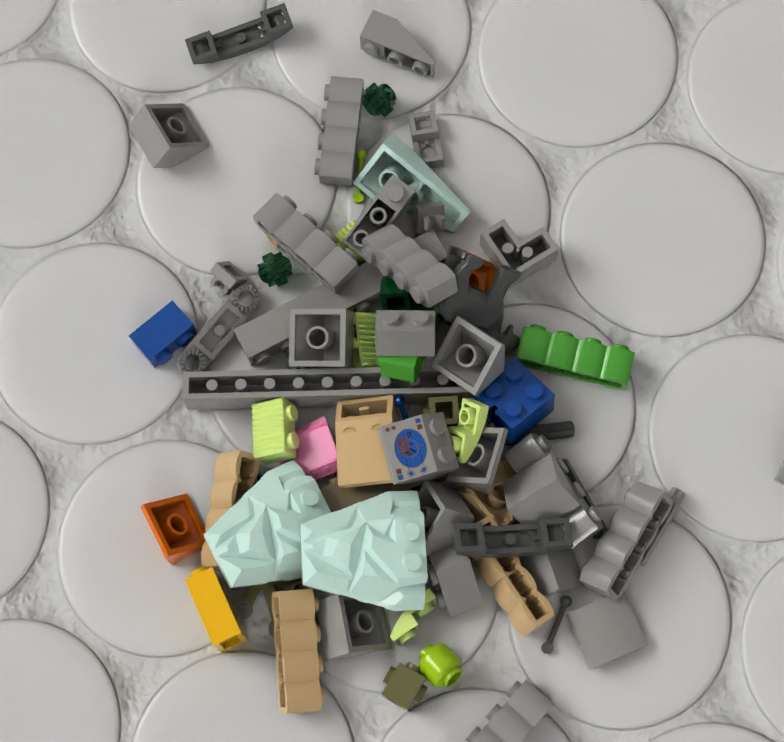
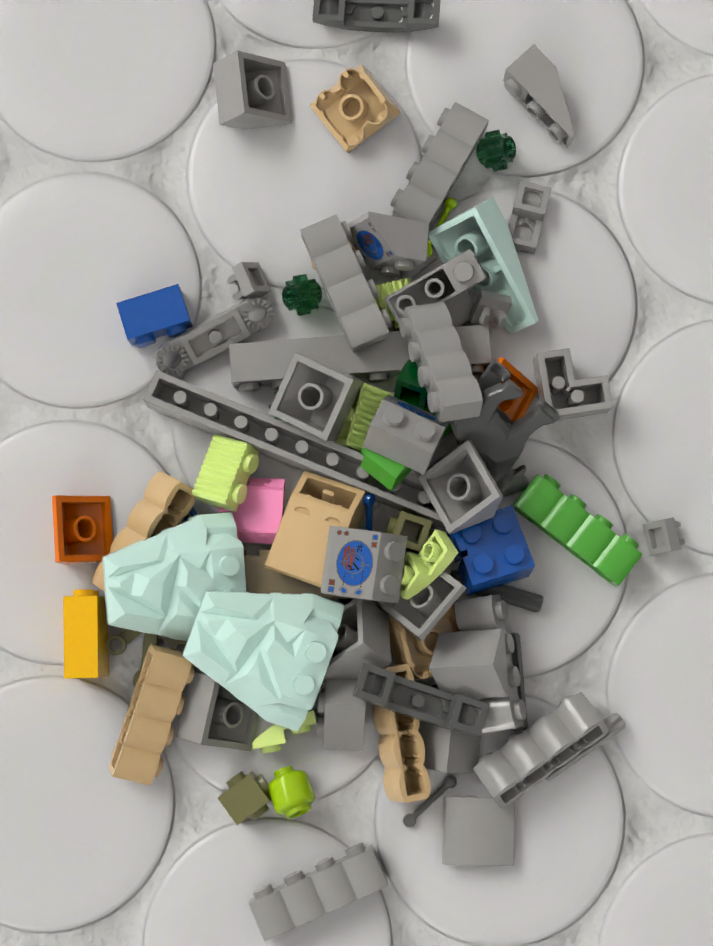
camera: 20 degrees right, 10 degrees up
(254, 114) = (354, 107): none -> tan slope
(328, 197) = (390, 242): none -> light grey slope
(644, 334) = (662, 536): none -> light grey tile

